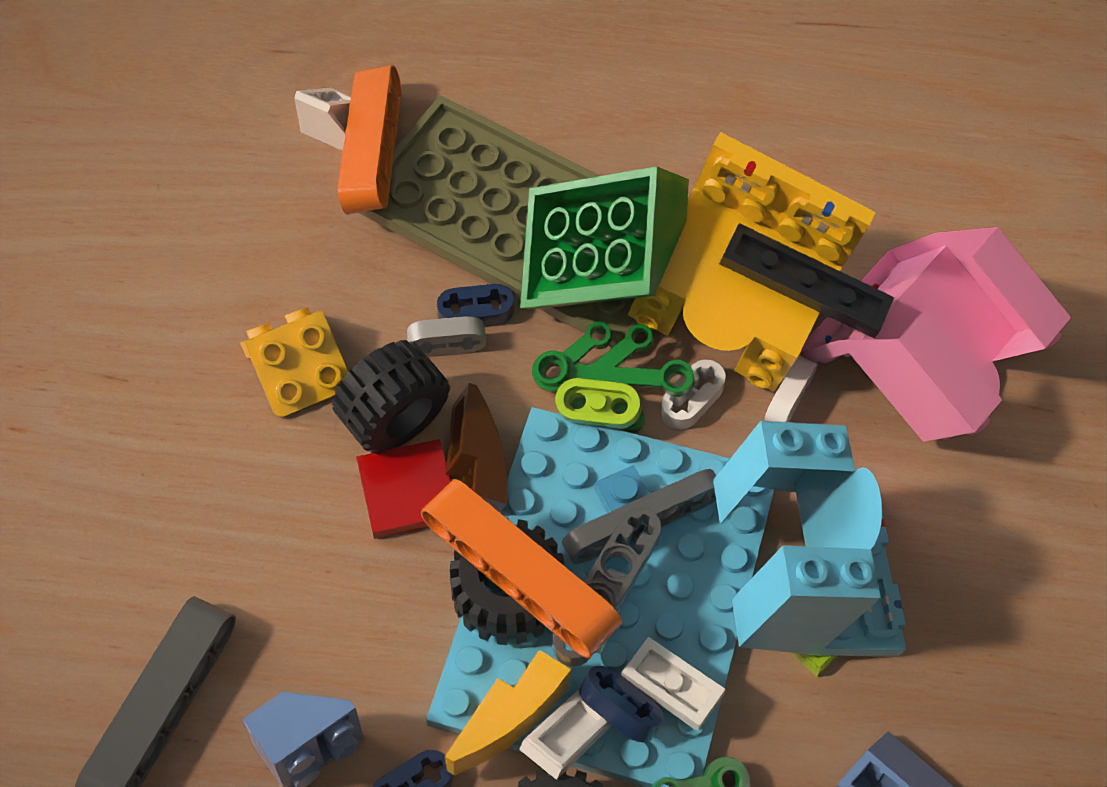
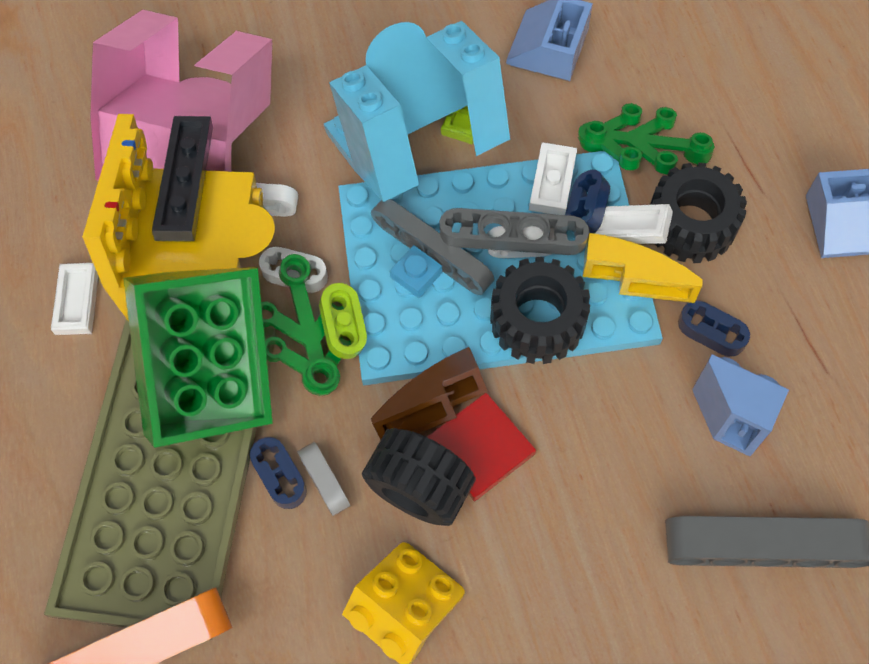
camera: 110 degrees left, 5 degrees up
(521, 568) = (542, 282): orange beam -> none

